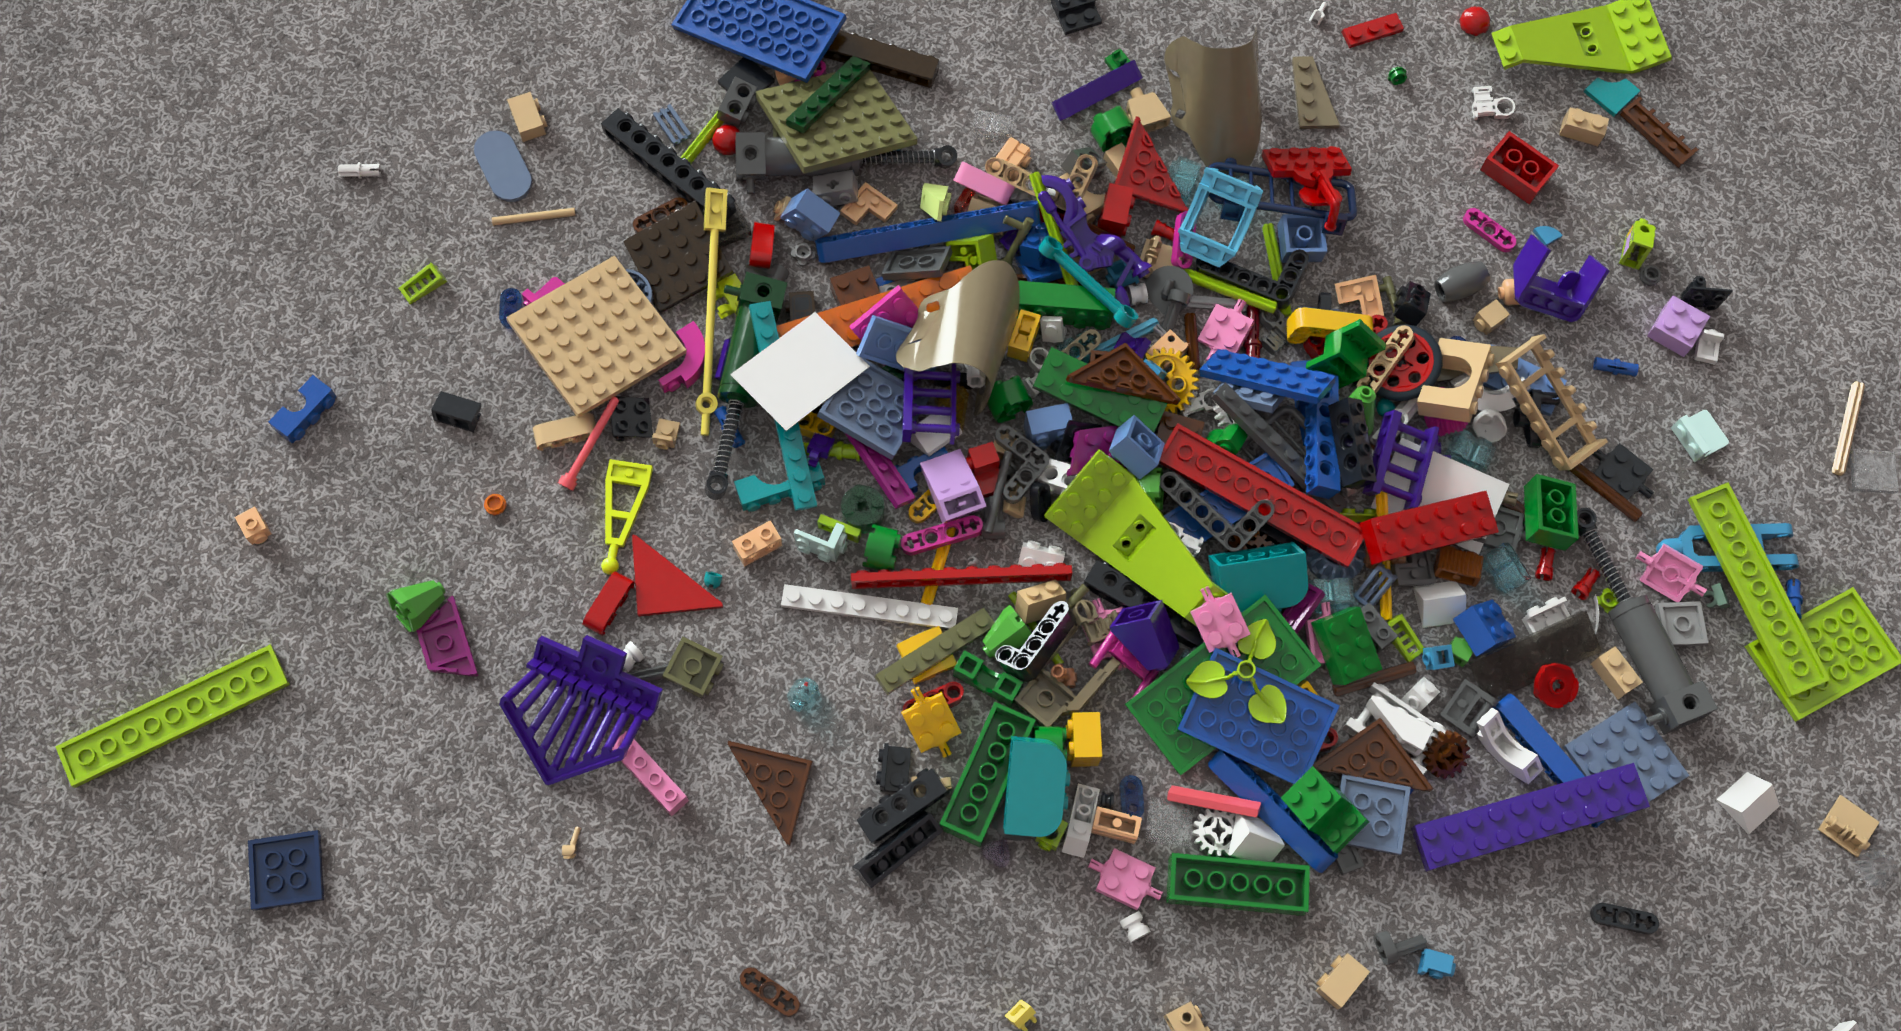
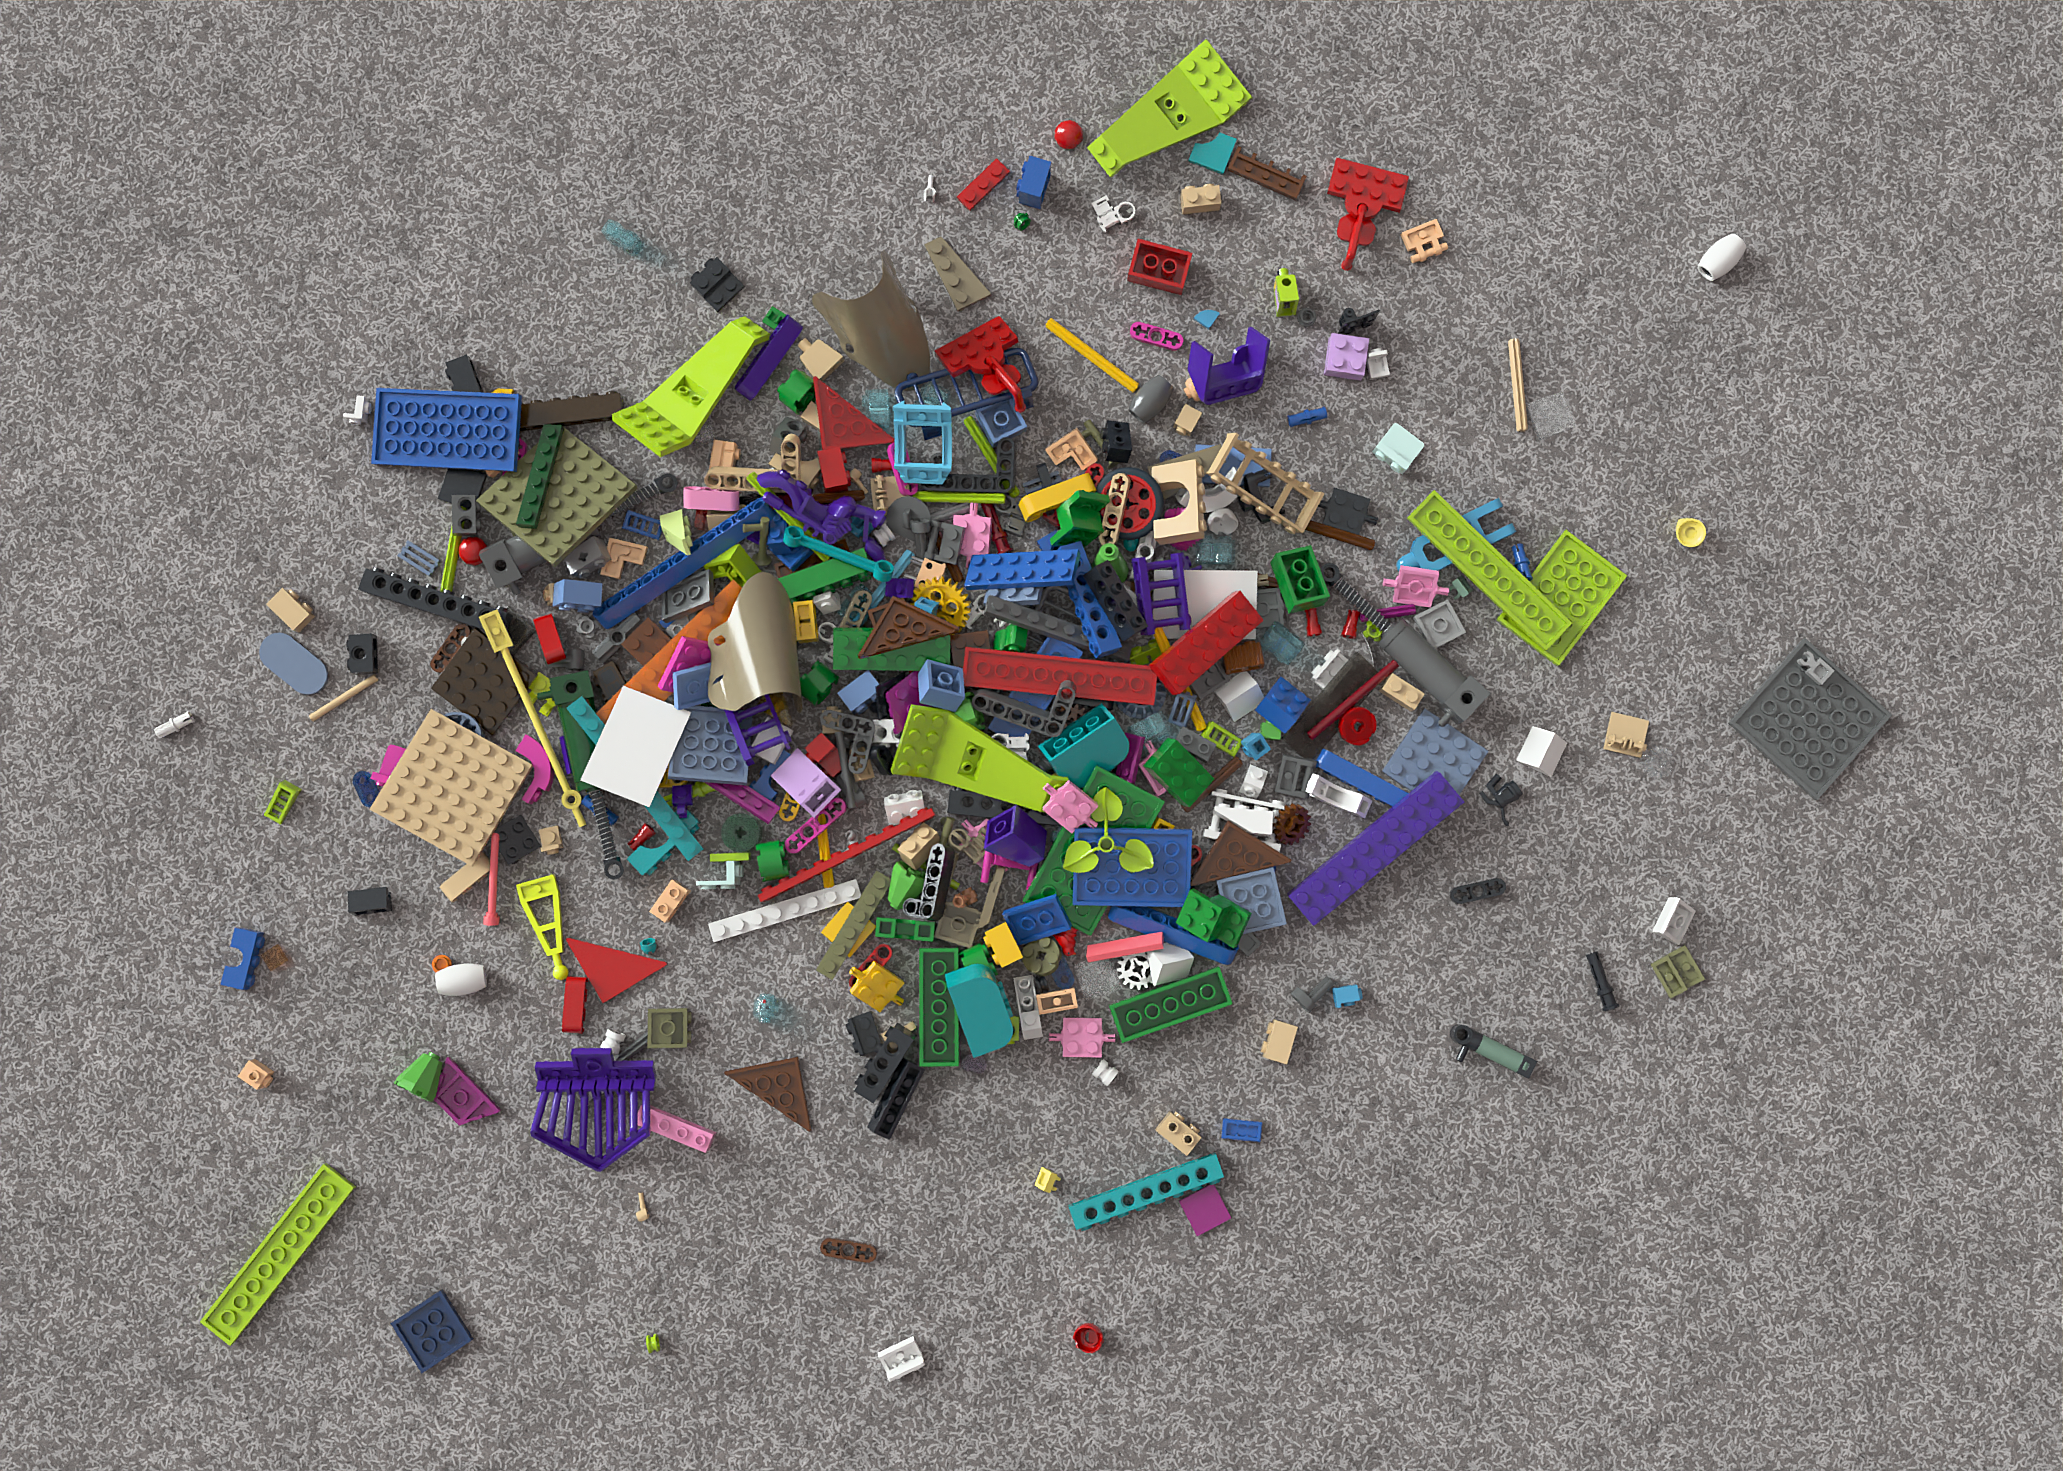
camera: 20 degrees left, 15 degrees up
(334, 424) = (274, 957): none -> clear orange tile
(507, 525) = (461, 979): none -> white piece
(510, 994) = (652, 1343): none -> lime bush
(573, 173) = (369, 662): none -> black brick
(762, 469) = (642, 836): none -> red pin
(816, 279) = (608, 646): none -> dark grey piece
(886, 181) = (625, 526): none -> blue slope
(1004, 89) = (686, 399): none -> wing
(1119, 761) = (1037, 966): none -> olive plate
(1131, 231) = (855, 475): none -> tan hand
(1133, 729) = (1037, 919): none -> blue plate
(1152, 766) = (1067, 941): none -> red animal
(1201, 328) = (950, 544): none -> dark grey plate
(1417, 221) = (1092, 355): none -> yellow axle
(1426, 43) = (1034, 182): none -> blue brick
(1561, 655) = (1352, 700): none -> dark red piece
(1635, 590) = (1392, 612): none -> magenta axle
(1693, 829) = (1506, 794): none -> black piece
(1749, 192) = (1369, 191): none -> red plate
(1799, 250) = (1422, 235): none -> light nougat plate

